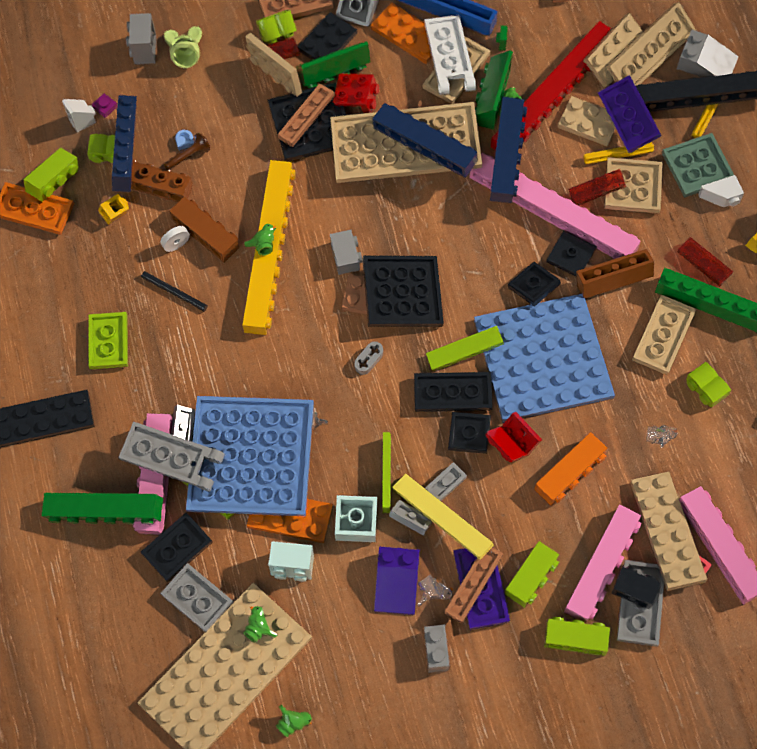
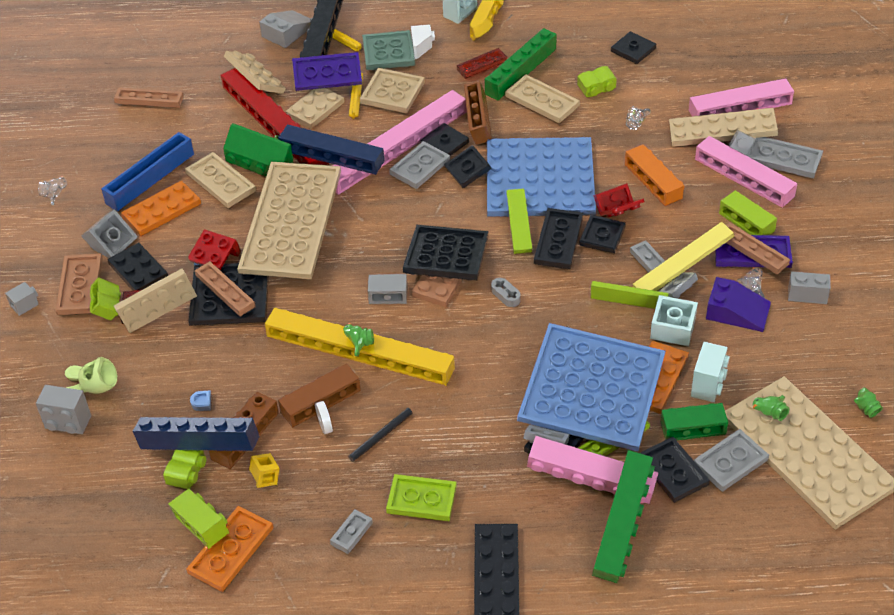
camera: 75 degrees left, 20 degrees down
(63, 294) = (351, 531): none -> light grey plate
(79, 113) = (131, 485): white slope -> none
(104, 105) = (125, 465): magenta plate -> none
(168, 455) = (581, 443): light grey hinge -> none
(199, 144) = (216, 383): reddish brown piece -> none
(235, 557) = (694, 421): none -> green brick
(333, 64) = (173, 249): green slope -> none
(425, 140) = (299, 197): dark blue brick -> none
(449, 52) = (206, 175): white hinge -> none
(501, 37) = (202, 142): green plate -> none
(525, 239) = (419, 165): none -> light grey plate
(577, 636) = (808, 198): lime brick -> none
(597, 187) = (388, 106): clear red plate -> none
(636, 587) = (774, 149): black brick -> none
(640, 551) = (741, 142): none -> light grey brick
(652, 46) = (263, 51): tan plate -> none

